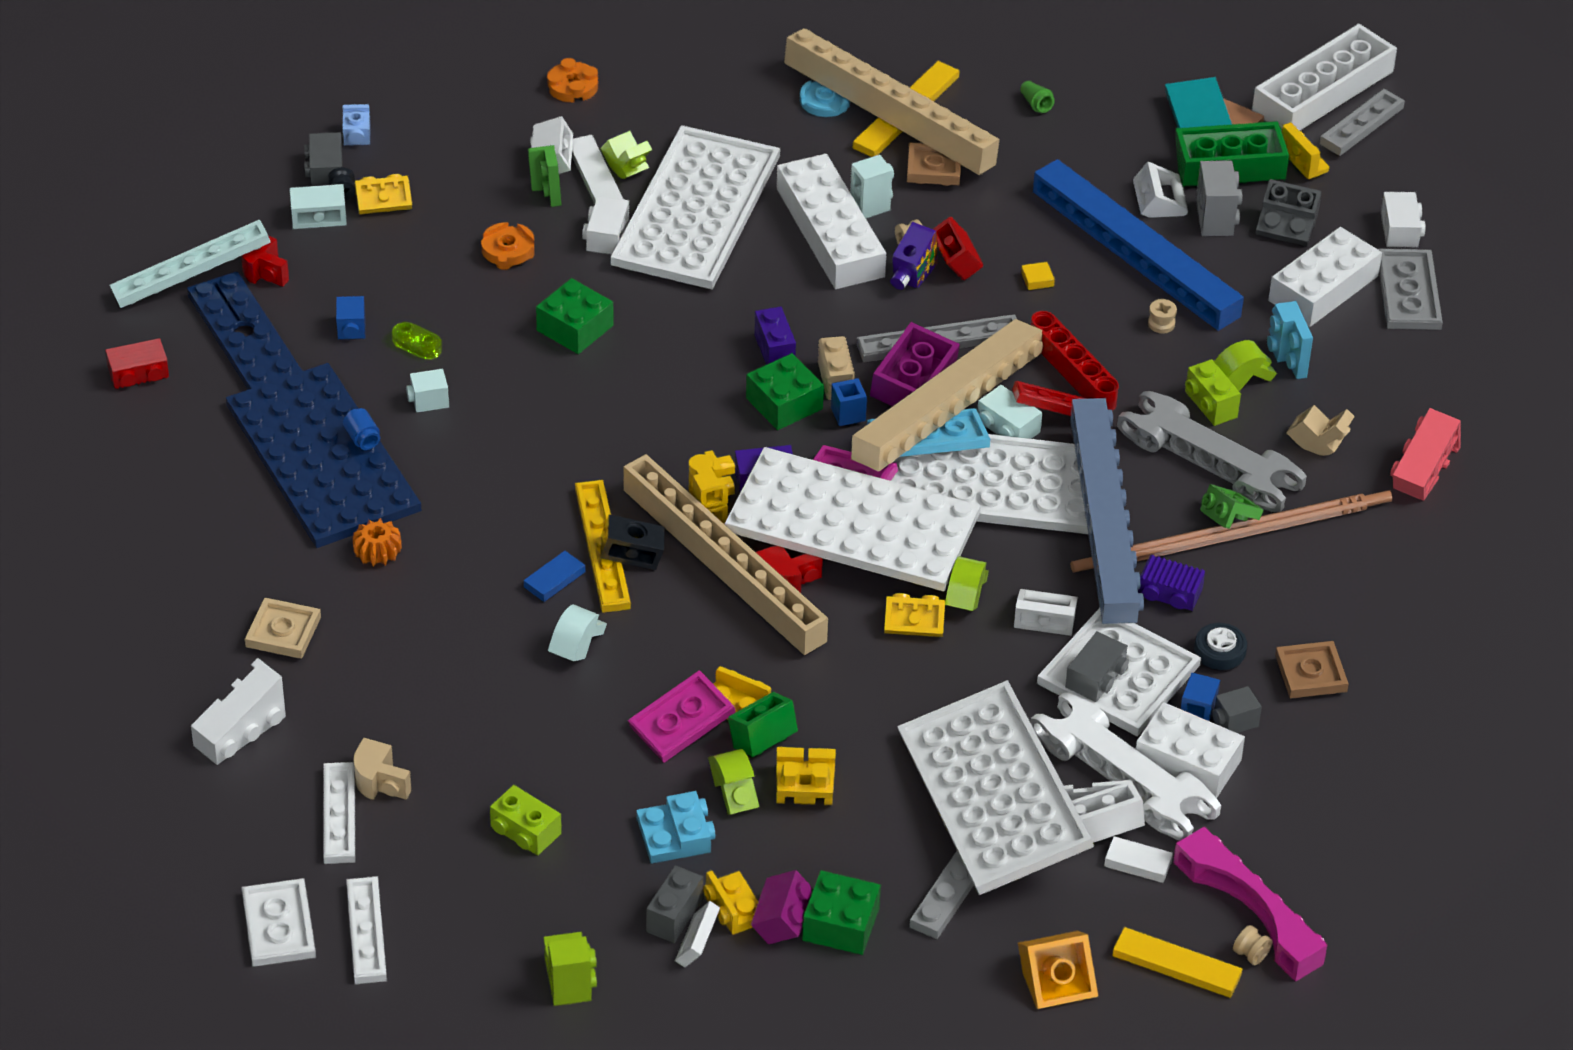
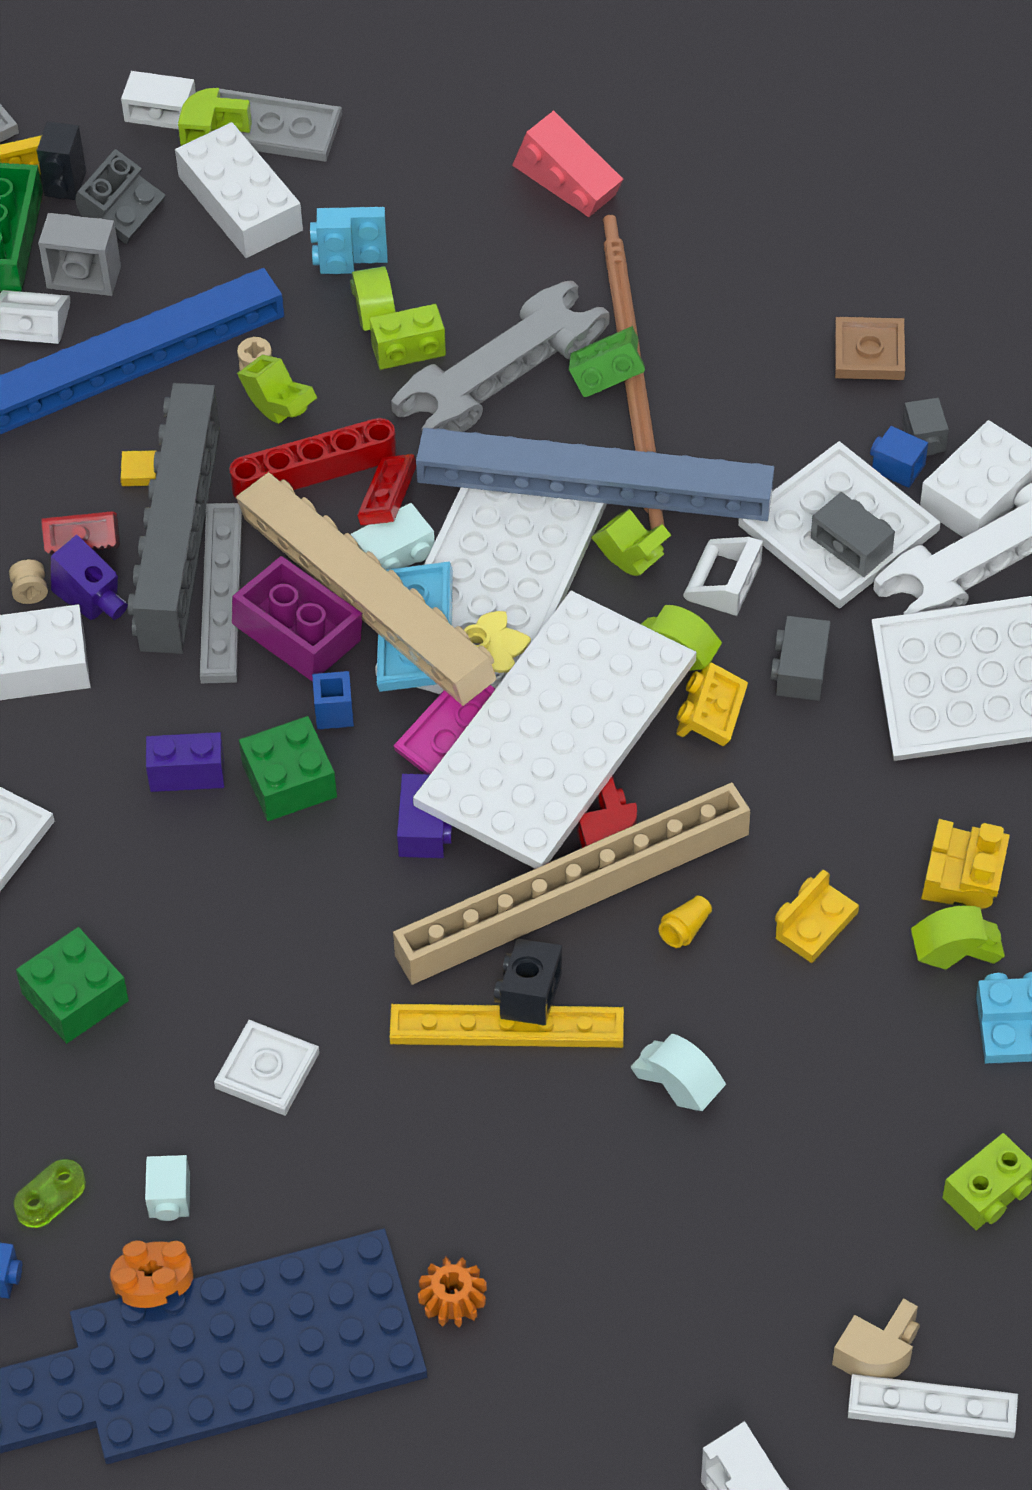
camera: 75 degrees left, 10 degrees up
(283, 628) = (588, 1433): tan plate -> none
(360, 391) = (166, 1261): none -> orange plate
(361, 429) = (242, 1274): blue brick -> none
(538, 428) = (266, 1067): none -> white tile
(554, 576) = (553, 1089): blue tile -> none
(681, 716) = (839, 980): dark pink tile -> none
(708, 484) = (454, 877): yellow hips -> none
(712, 625) = (684, 922): none -> yellow cone
(763, 724) = (878, 890): green brick -> none
(834, 362) = (257, 703): tan brick -> none
(928, 475) = (498, 639): none -> light yellow plate
(975, 662) = (802, 658): none -> dark grey brick
(985, 290) = (175, 519): none -> dark grey brick
(1052, 546) = (630, 544): none -> lime brick
(1131, 326) = (273, 389): none -> lime brick
(1171, 582) = (716, 436): dark purple brick -> none
(1220, 646) = (809, 412): black wheel -> none
(1306, 166) = (61, 160): none -> black brick
(1318, 433) = (504, 253): tan brick -> none
(1389, 239) = (207, 112): none -> lime brick

